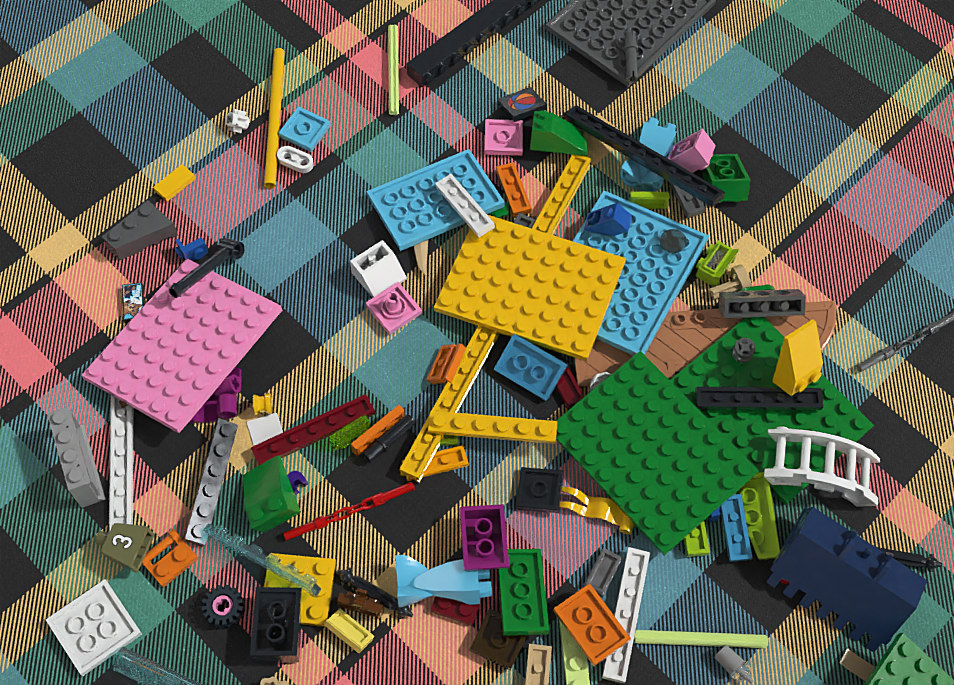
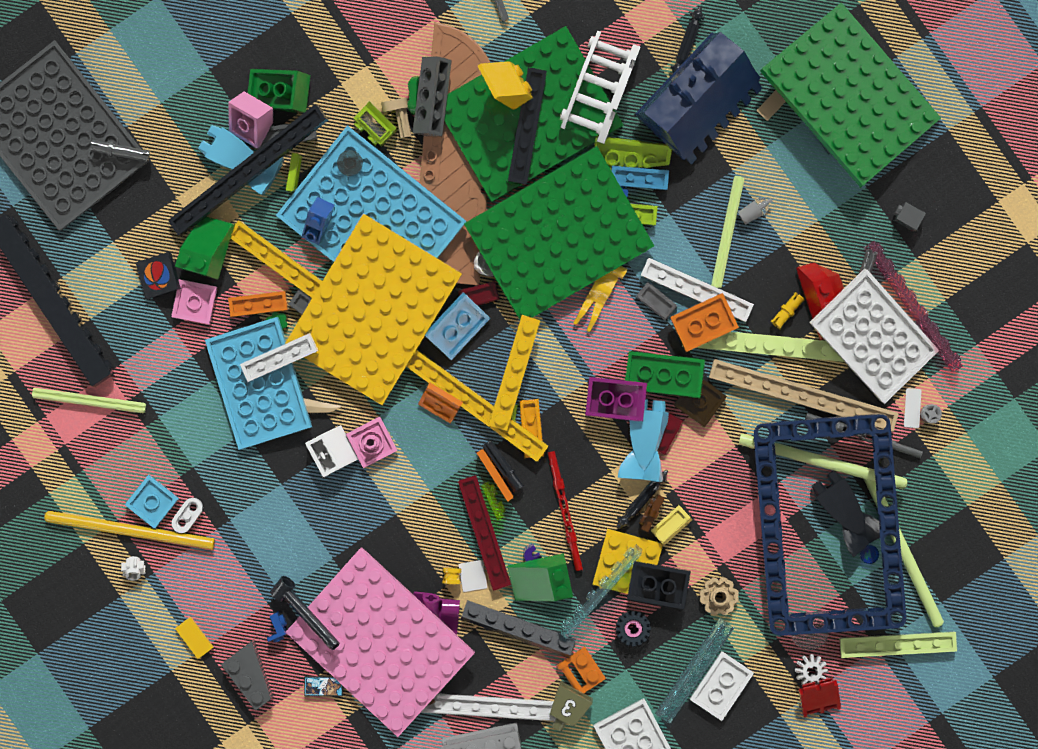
camera: 75 degrees left, 25 degrees up
(539, 490) = (574, 340): black tile -> none
(743, 345) = (478, 127): dark grey wheel -> none

